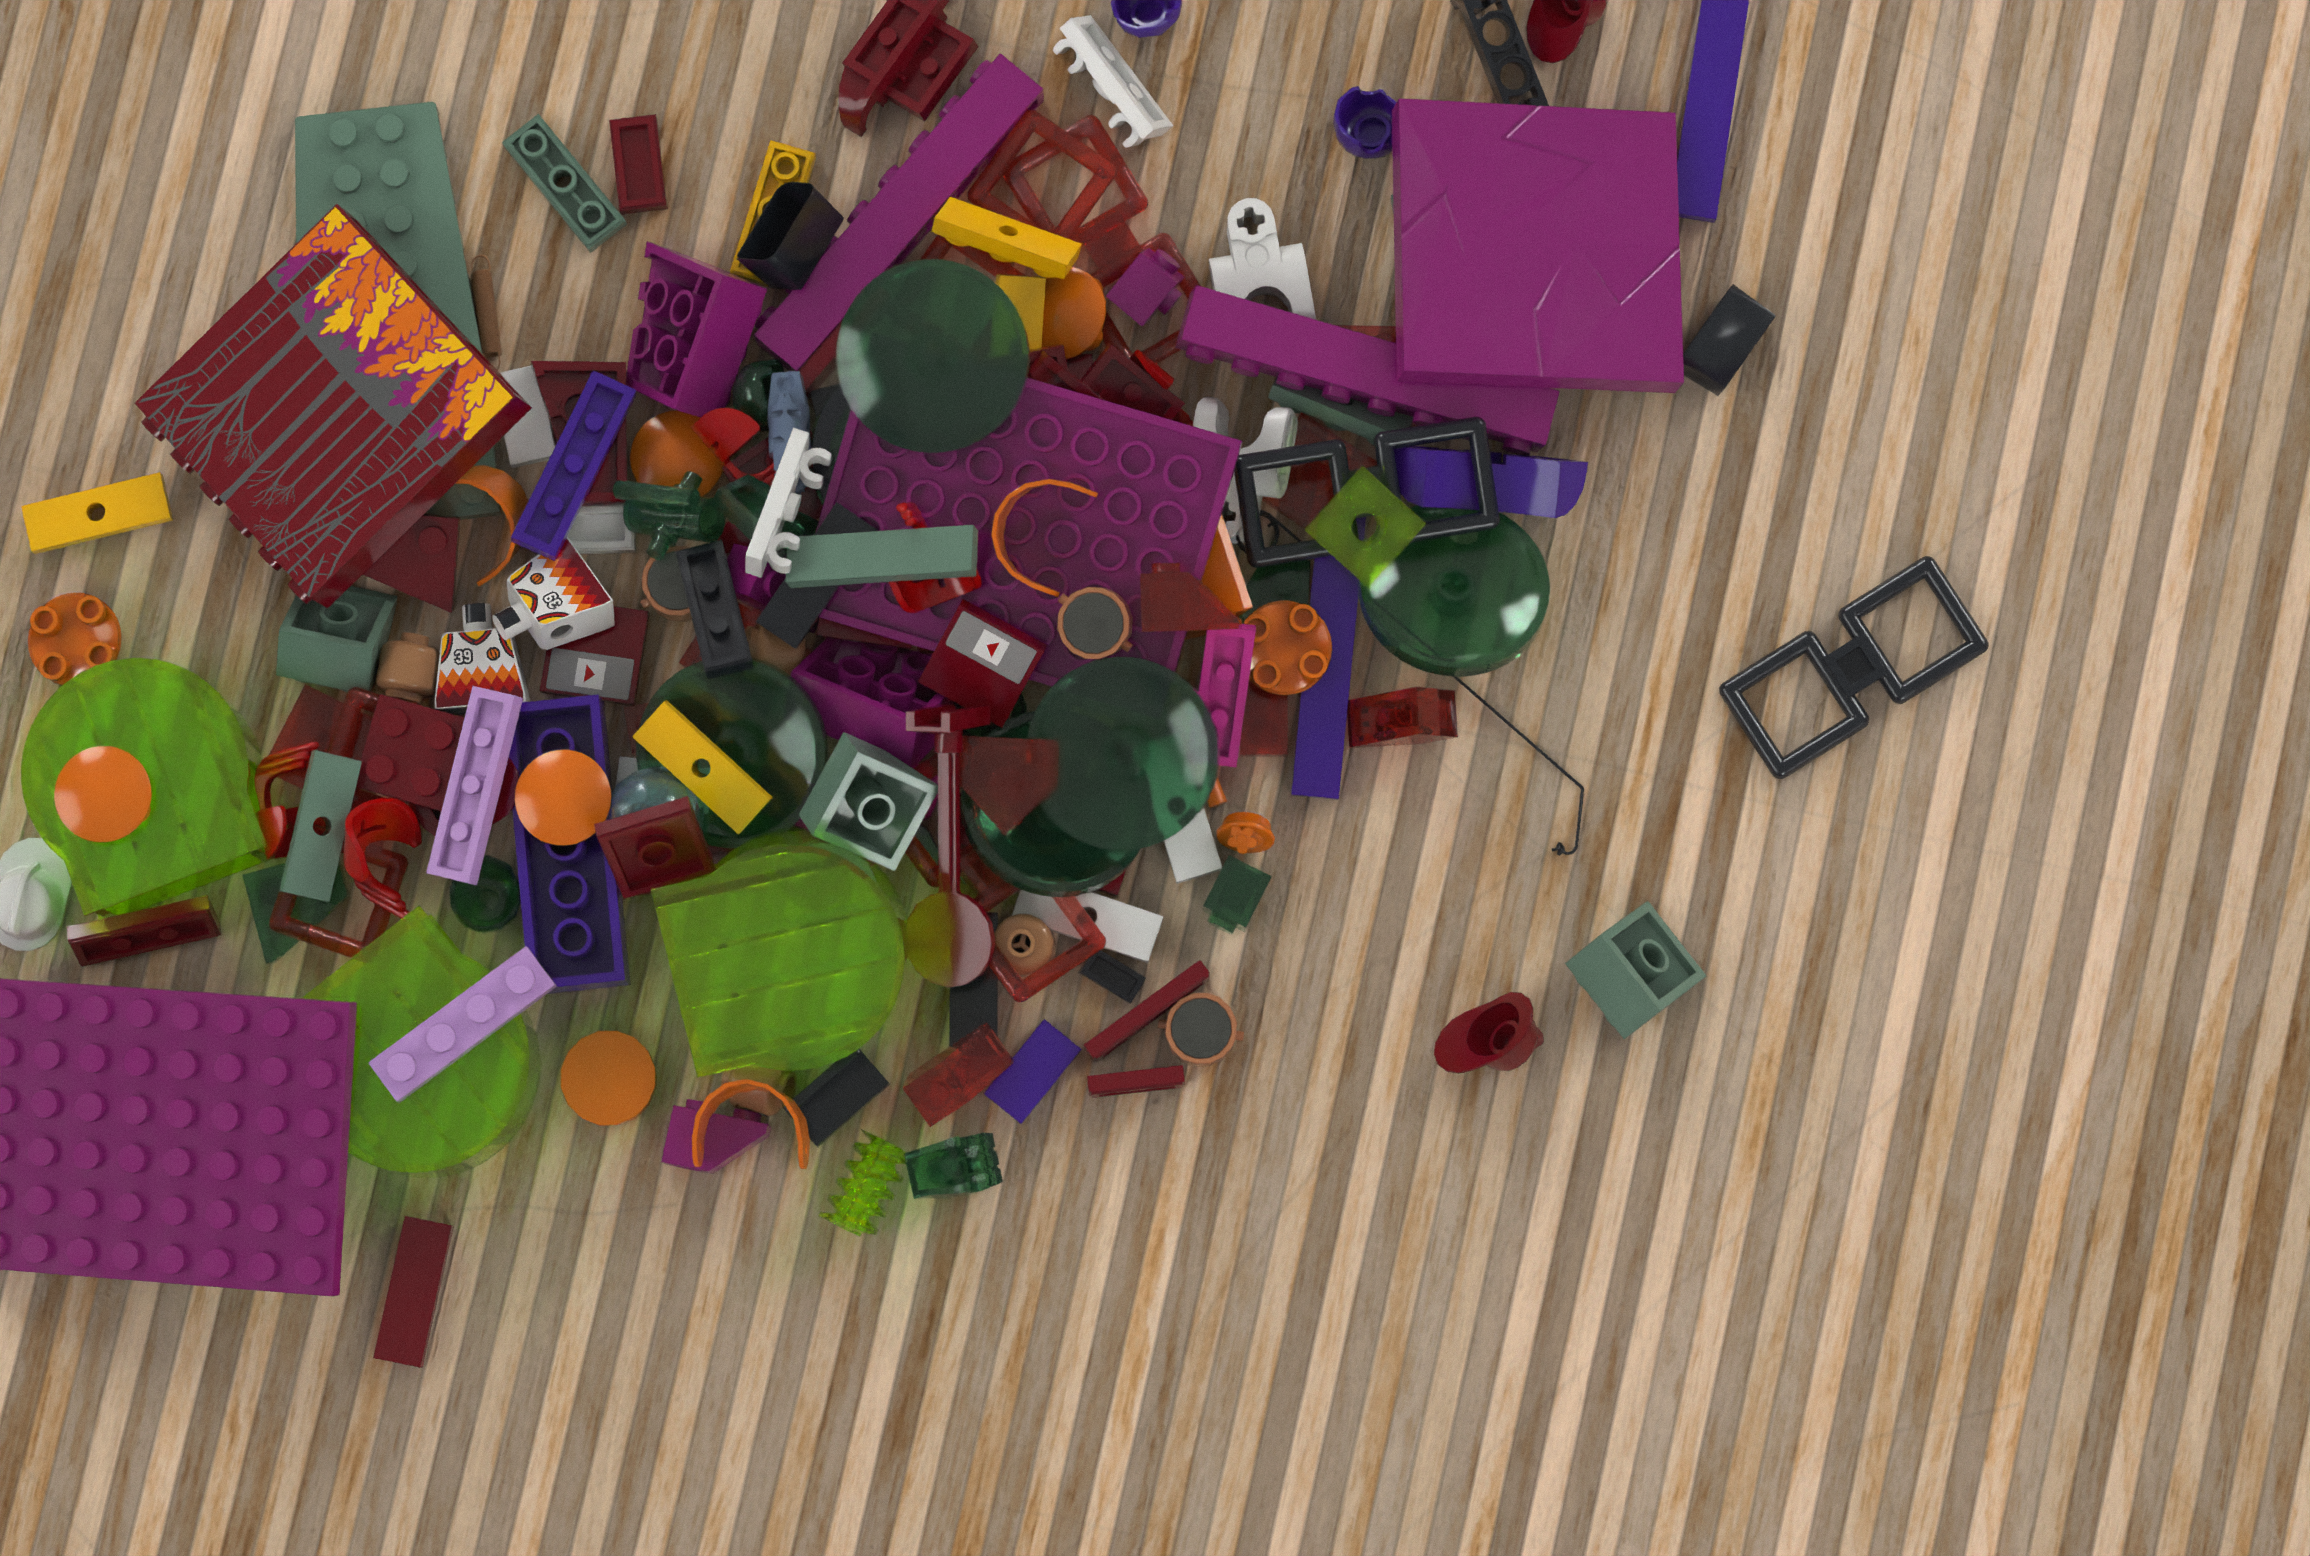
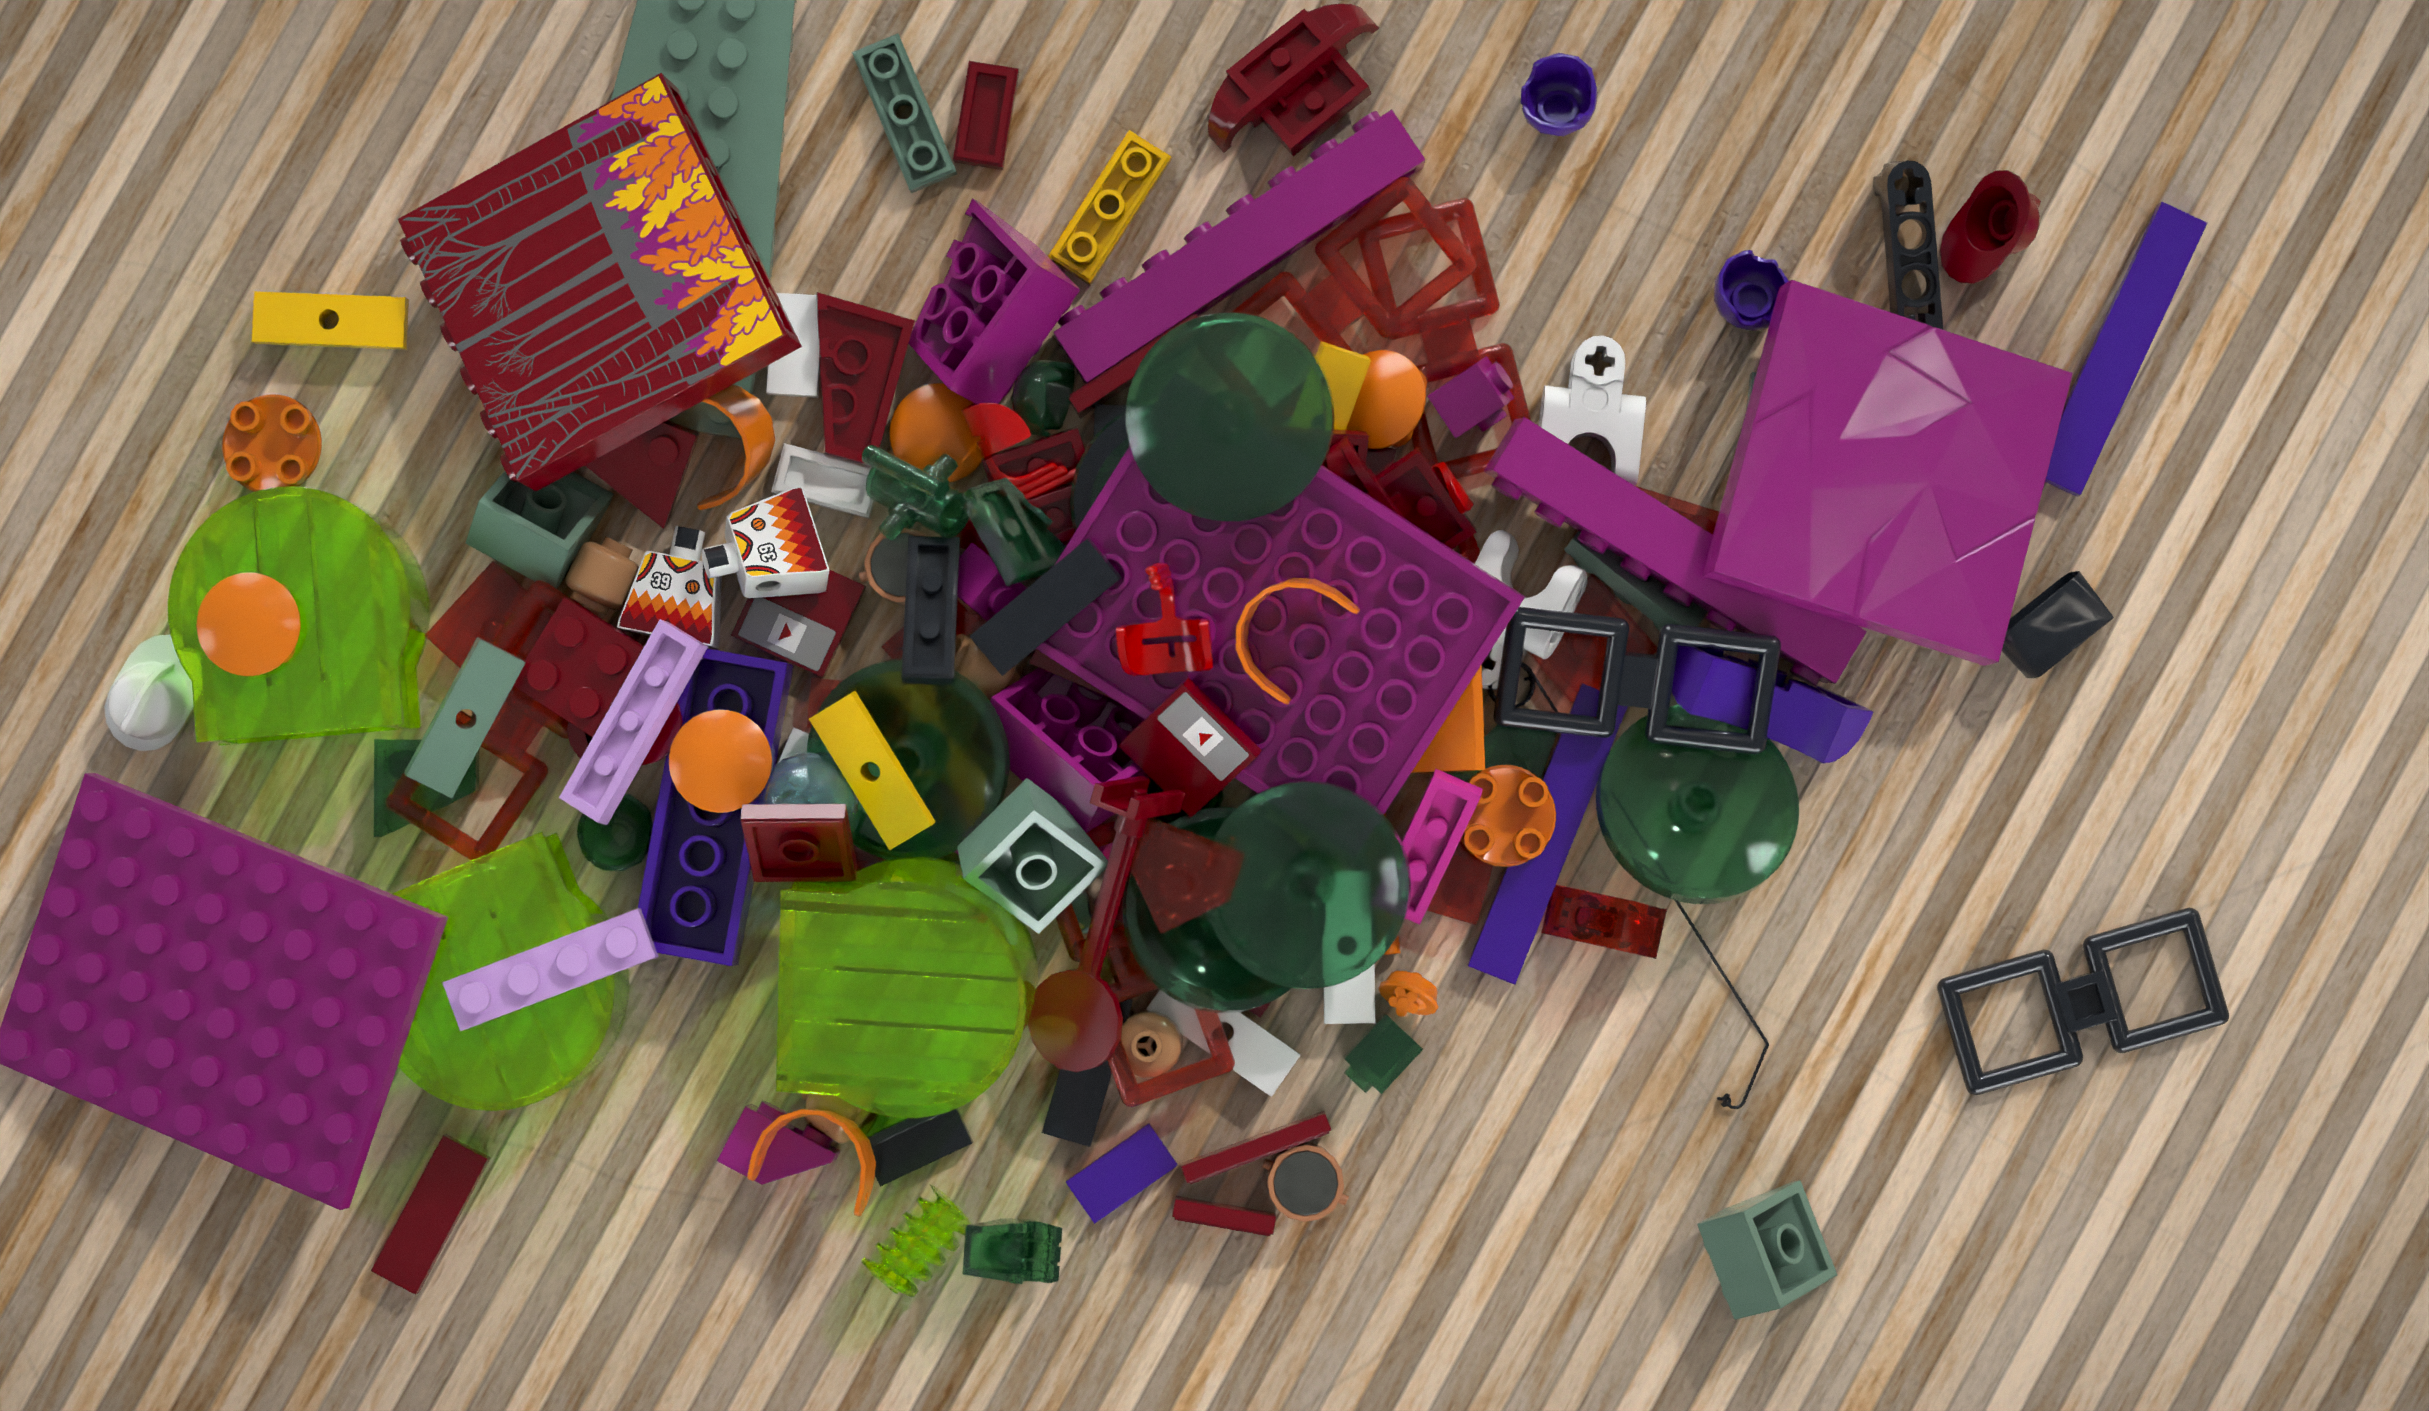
camera: 15 degrees right, 5 degrees up
(143, 931) = (258, 767): dark red tile -> none
(275, 819) = (418, 692): red helmet -> none
(380, 821) = (526, 727): red helmet -> none
(486, 311) = (786, 225): medium nougat piece -> none
(573, 465) = (829, 416): dark purple plate -> none
(608, 1078) = (689, 1054): orange tile -> none
(783, 505) = (1031, 527): white plate -> none
(786, 410) = (1061, 444): sand blue hinge -> none
(790, 236) = (1120, 239): black piece -> none
(884, 556) = (1117, 612): sand green tile -> none
(957, 1074) = (1042, 1158): clear red slope -> none
(1006, 238) = (1342, 307): yellow tile -> none
(1095, 623) = (1317, 742): pearl dark grey piece -> none
(1112, 975) = (1232, 1099): black piece -> none
(1113, 79) = (1500, 168): white plate -> none
(1181, 602) = (1414, 750): clear red slope -> none
(1394, 528) = (1625, 749): clear neon green piece -> none
(1490, 1035) = (1597, 1275): dark red piece -> none

